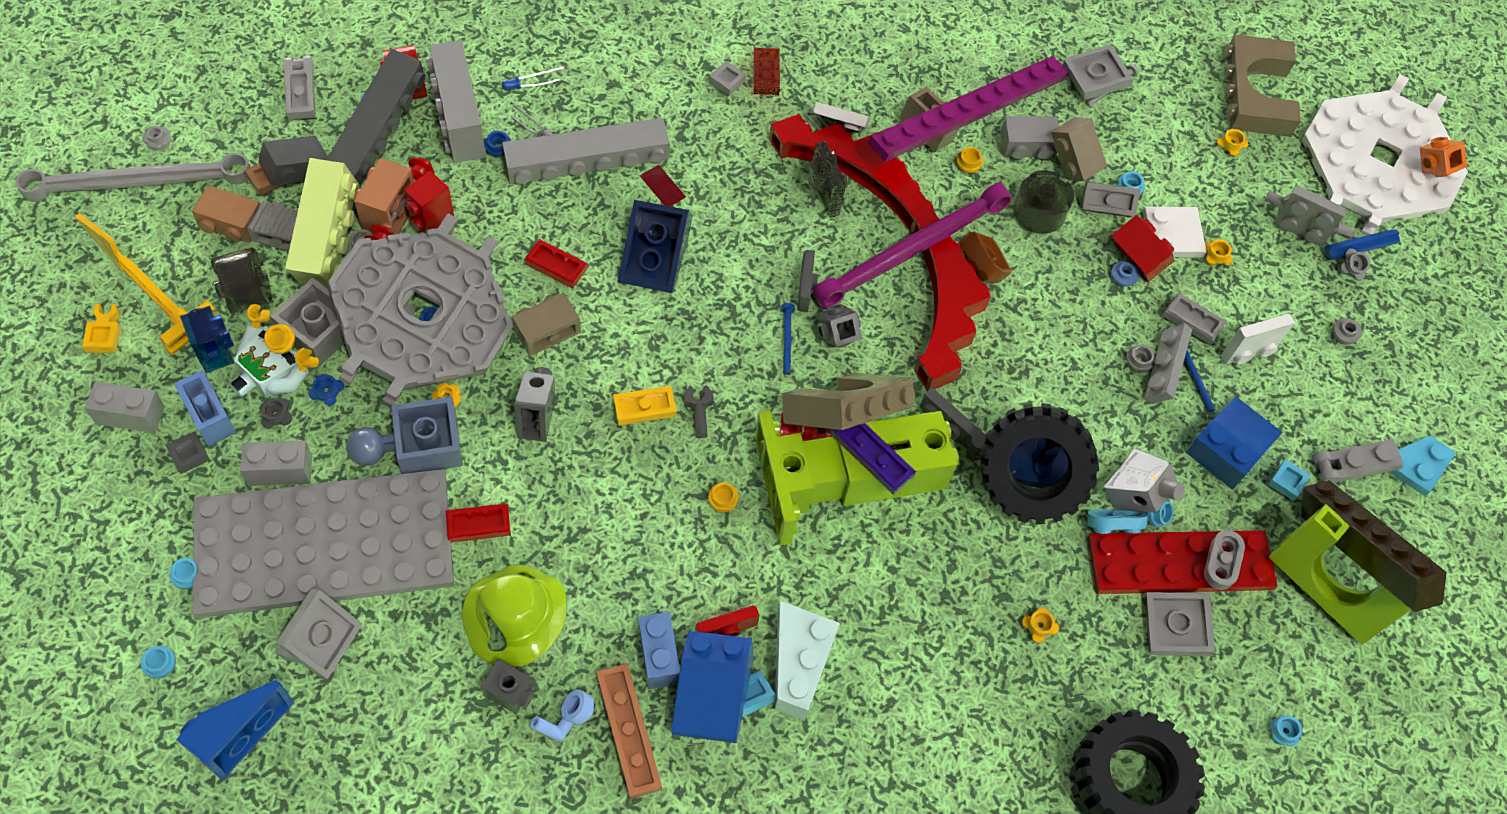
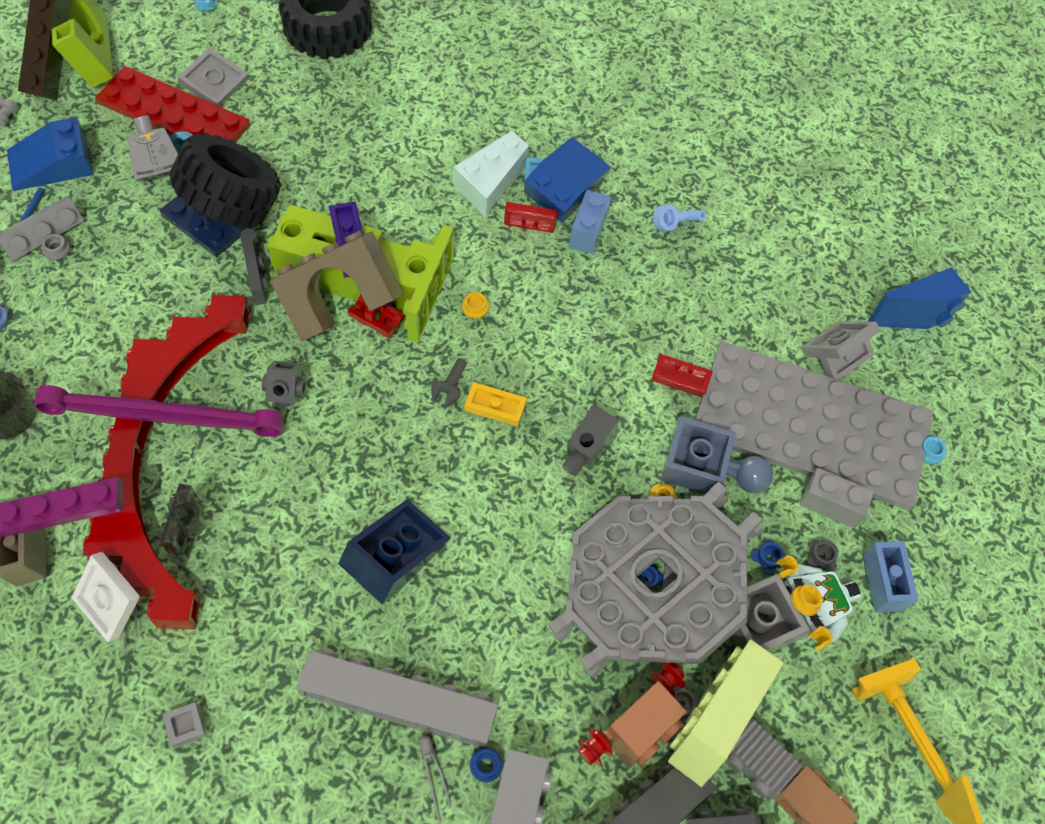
camera: 150 degrees left, 0 degrees up
(104, 333) = (975, 720): yellow plate -> none
(125, 407) = (964, 618): light grey brick -> none
(158, 662) = (966, 390): medium azure plate -> none
(187, 452) = (916, 549): dark grey plate -> none
(208, 338) = (874, 643): clear blue brick -> none
(241, 279) = (824, 701): clear smoke brick -> none
(428, 202) = (601, 696): red brick -> none
(508, 687) = (710, 251): dark grey brick -> none
(523, 608) = (685, 283): lime piece -> none
(546, 324) = (542, 518): dark tan brick -> none
(556, 263) = (500, 581): red plate -> none
(629, 731) = (636, 192): nougat plate -> none
(662, 186) = (341, 627): dark red sticker -> none
(766, 71) = (134, 714): clear red plate -> none
(787, 309) = (313, 432): blue piece -> none
(808, 281) = (278, 444): dark grey plate -> none
(970, 160) = (19, 490): yellow plate -> none
(985, 256) = (103, 376): dark orange piece -> none
(1042, 616) = (307, 121): yellow plate -> none
(1224, 562) = (148, 82): light grey plate -> none
(1289, 480) = (40, 115): medium azure plate -> none

